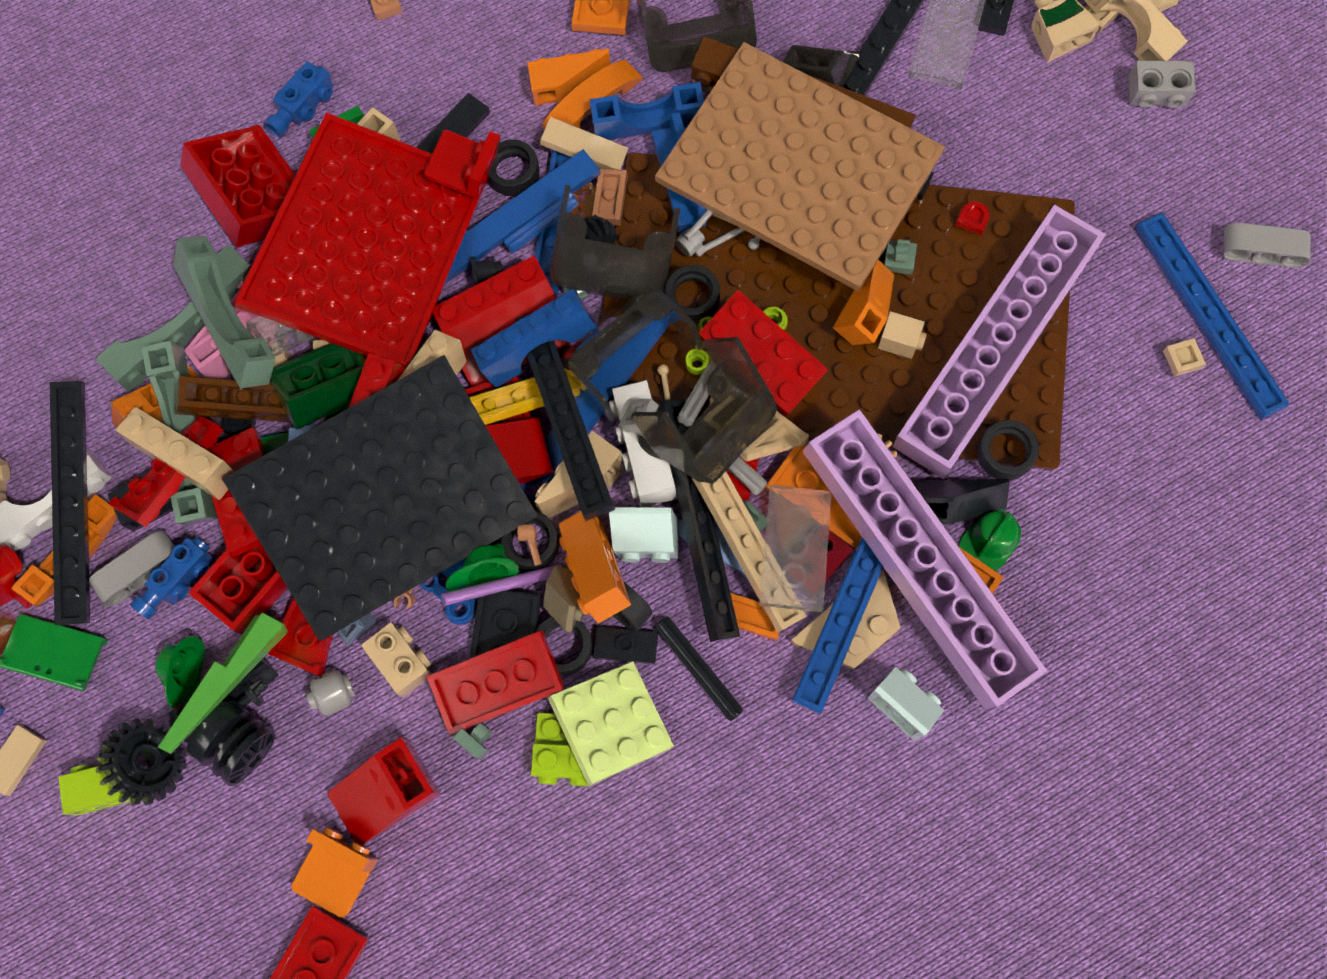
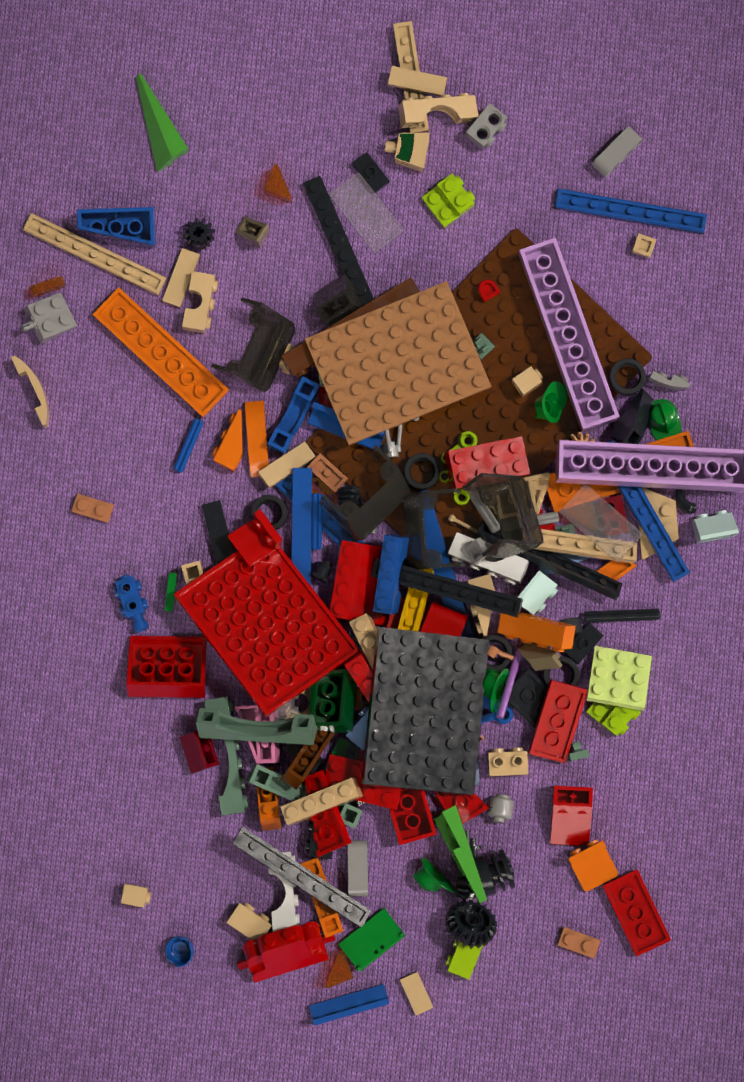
camera: 55 degrees left, 10 degrees up
(159, 285) = (198, 752): none -> dark red brick
(178, 576) = (380, 845): blue brick -> none
(215, 931) = (578, 942): none -> nougat plate
(528, 35) = (188, 445): none -> blue axle
(867, 309) = (503, 390): orange slope -> none
(900, 381) = (551, 403): none -> green piece
(905, 642) = (683, 504): none -> black arm
(1041, 106) = (449, 200): none -> lime plate
(1049, 517) = (676, 383): none -> light grey slope

